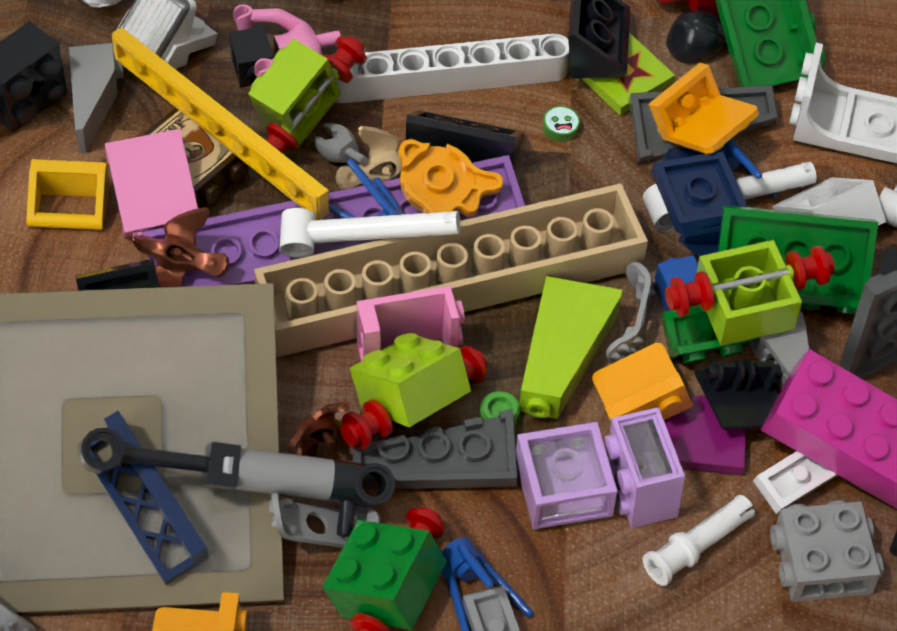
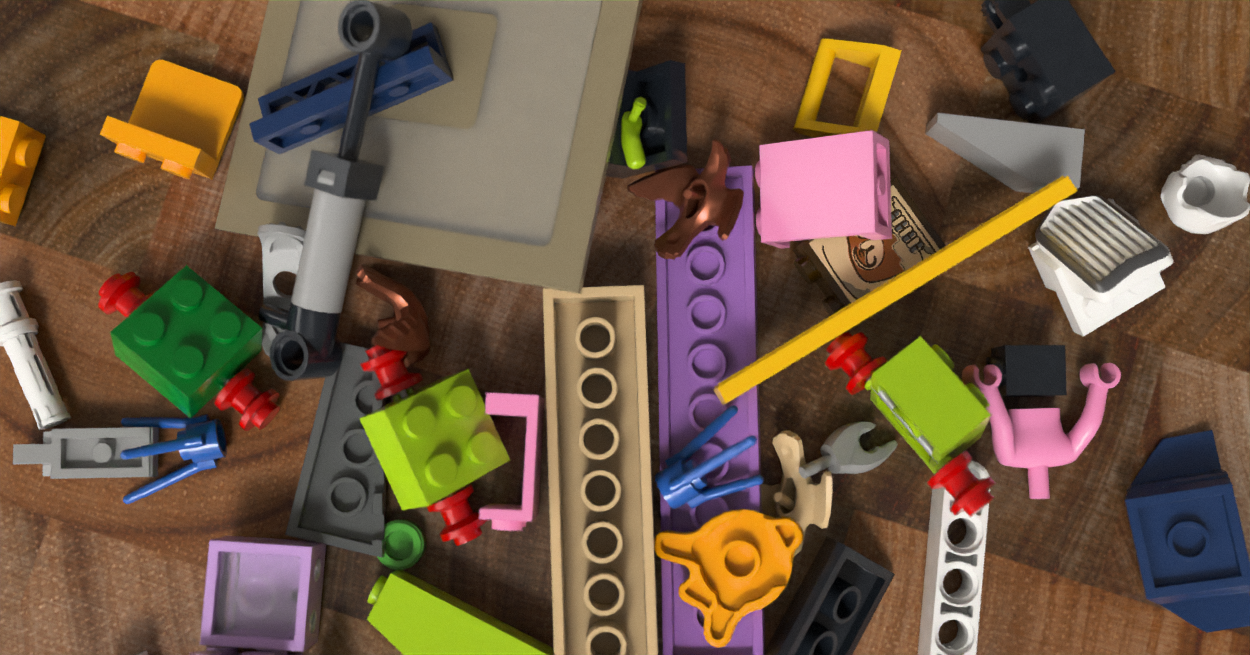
camera: 105 degrees right, 30 degrees up
(302, 230) = (693, 360): white piece -> none

